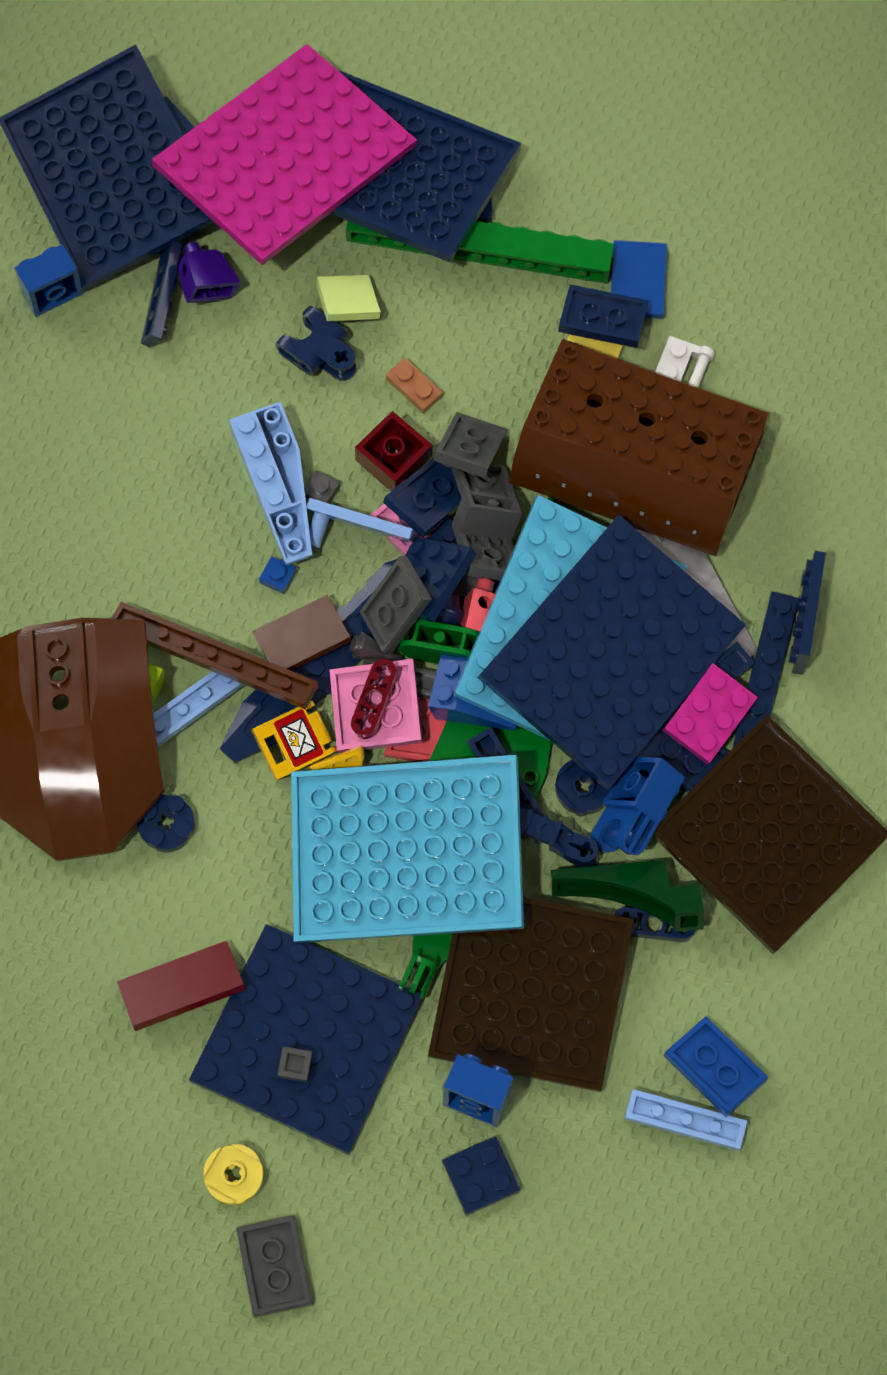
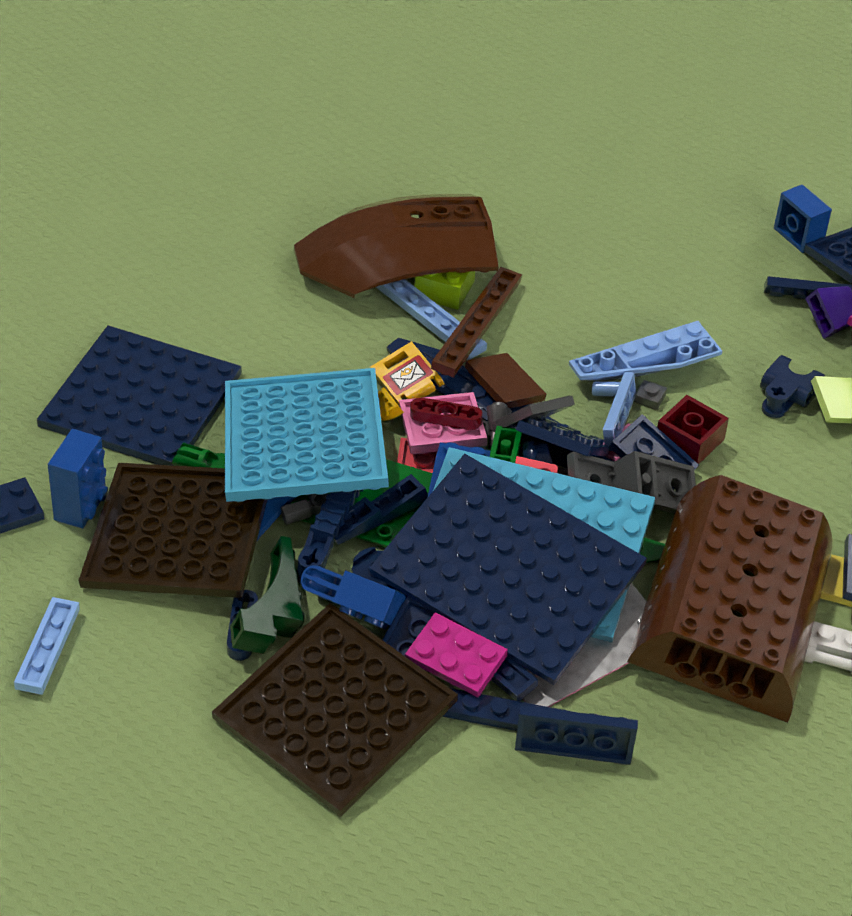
camera: 85 degrees right, 25 degrees down
(180, 831) = (318, 311): dark blue plate -> none
(180, 985) = (187, 316): dark red tile -> none
(240, 1190) = (28, 364): light yellow plate -> none
(277, 575) = (561, 370): blue plate -> none
(294, 1064) = (112, 375): dark grey plate -> none
(414, 385) = (767, 453): nougat plate -> none
(470, 445) = (698, 464): dark grey plate -> none
(715, 1066) = (97, 666): blue tile -> none

